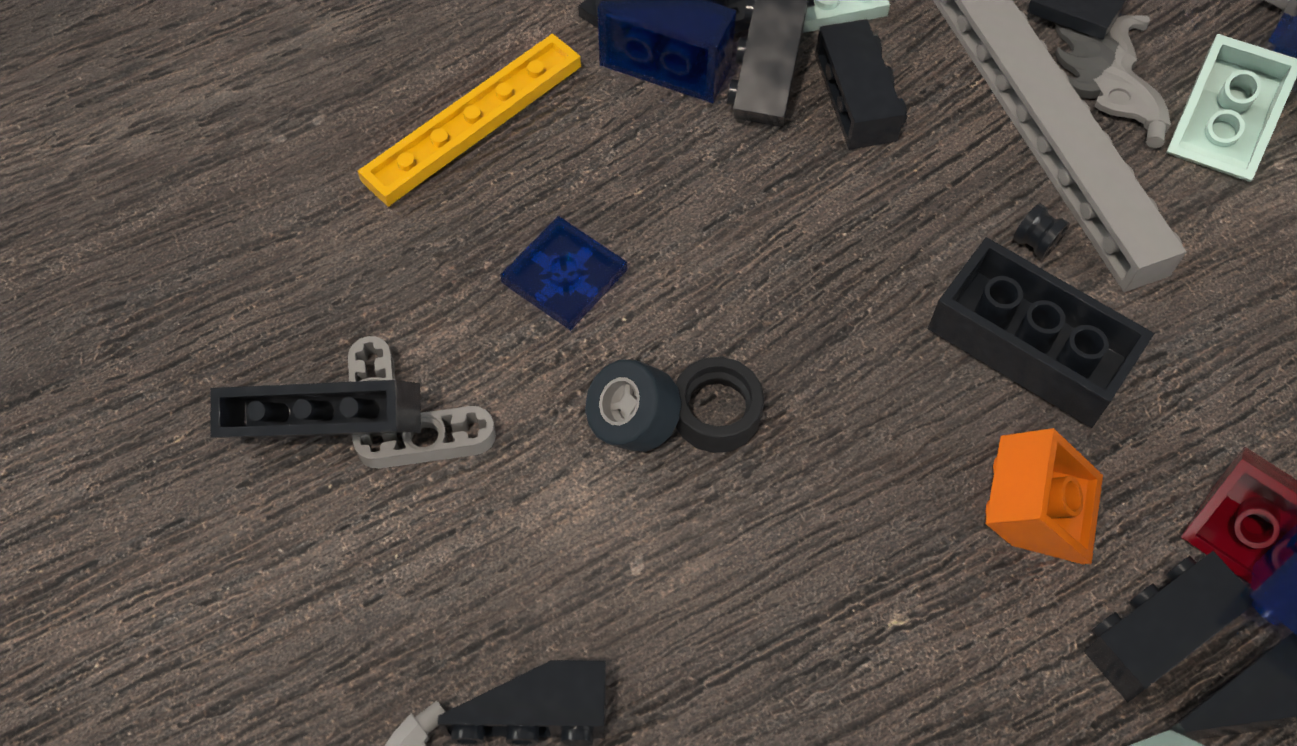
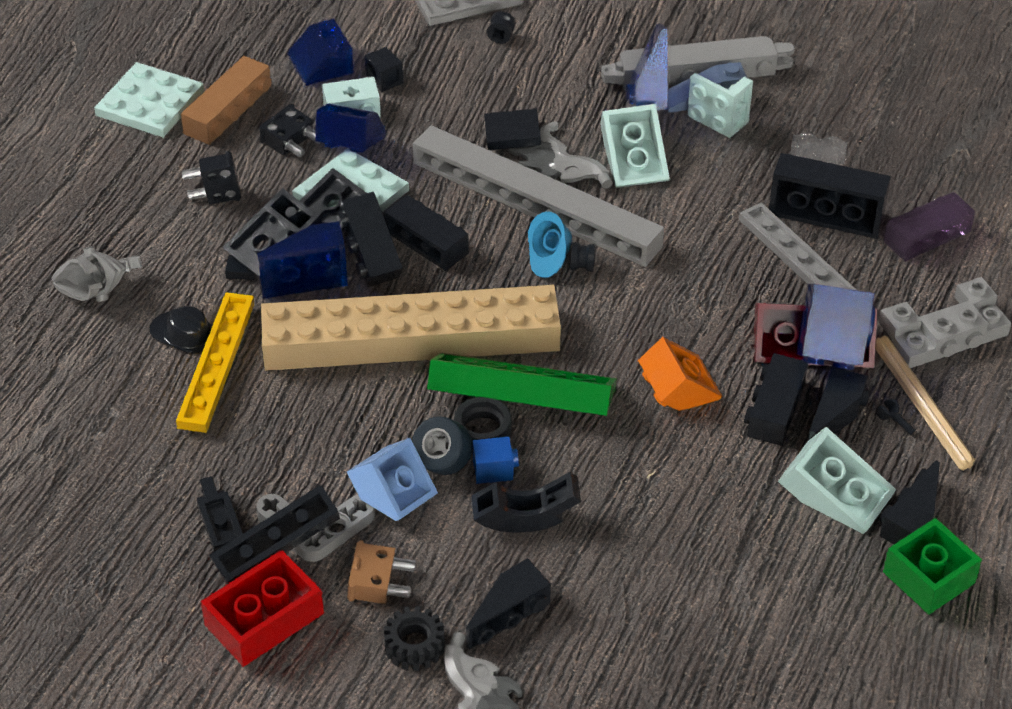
camera: 35 degrees left, 15 degrees down
(226, 501) = (262, 607): none -> red brick
(299, 332) = (217, 515): none -> black hinge
(357, 652) = (414, 653): none -> black tyre
(404, 533) = (373, 572): none -> medium nougat piece
(472, 54) = (182, 329): none -> black piece
(533, 418) = (393, 480): none -> light blue slope
(564, 272) = (340, 411): clear blue tile -> none
(672, 571) = (525, 510): none -> black arch
(691, 466) = (494, 460): none -> blue brick
(740, 209) = (409, 327): none -> tan brick
(816, 377) = (521, 383): none -> green arch
(1006, 188) = (548, 244): none -> dark azure piece
(1039, 331) = (619, 302): black brick -> none

